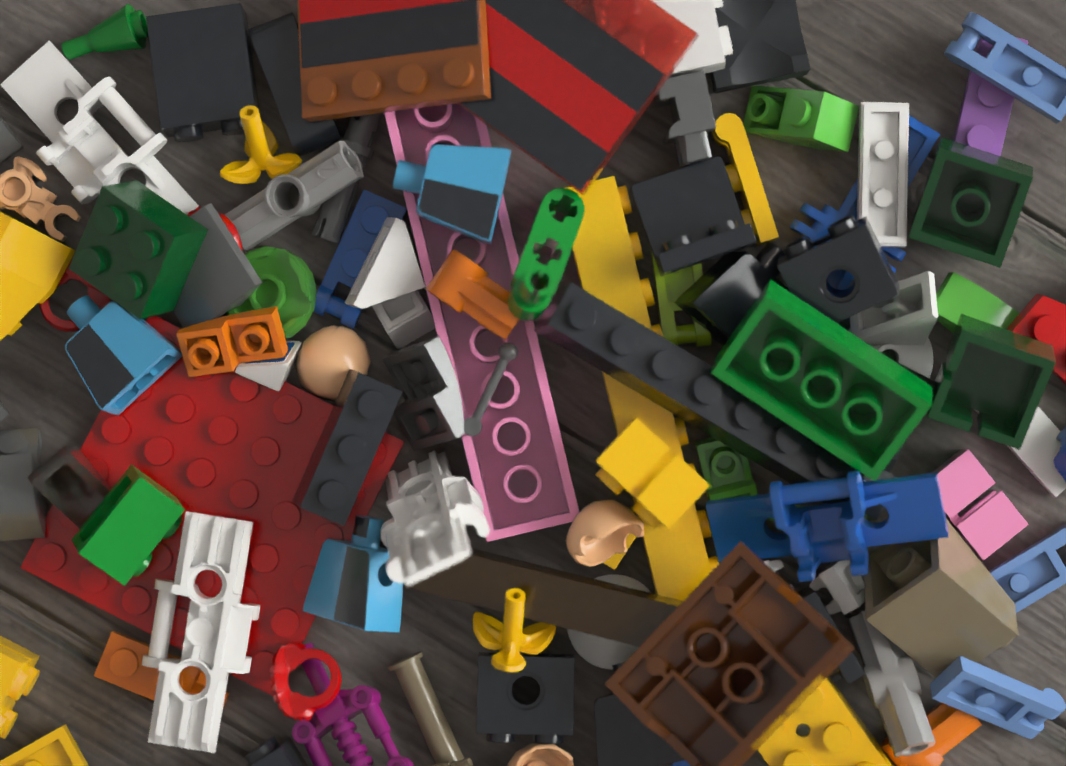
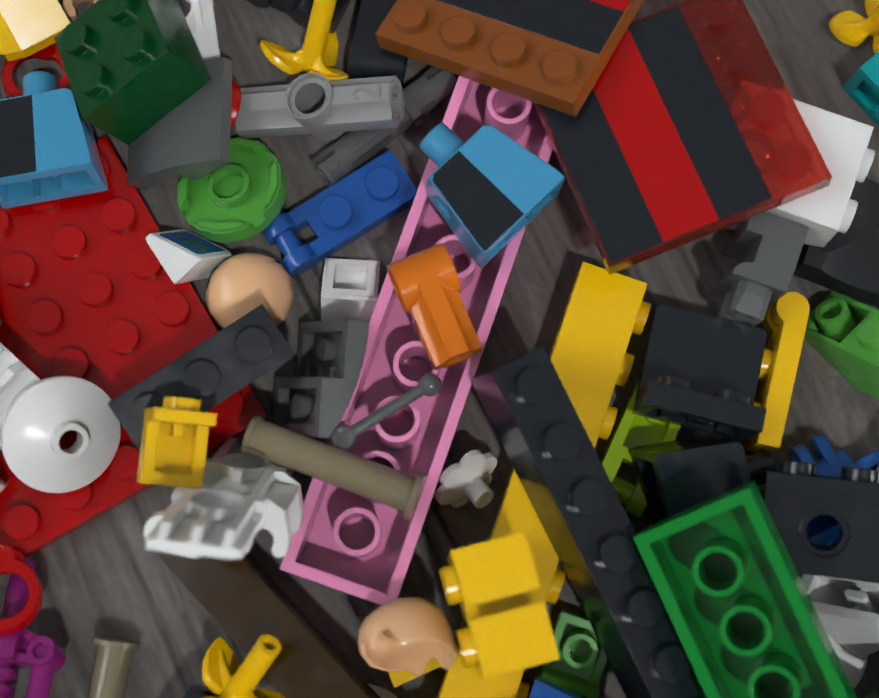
camera: 20 degrees right, 10 degrees down
(232, 339) = (161, 205): orange slope -> none
(260, 545) = (40, 418): none -> white dish
(353, 581) = (106, 530): dark azure torso -> none
(365, 506) = (175, 443): none -> yellow bracket
(388, 269) = (364, 234): white slope -> none
(479, 450) = (333, 465): none -> dark tan pin
(557, 236) = (557, 285): green beam -> none
(575, 397) = (467, 481): none -> white plant

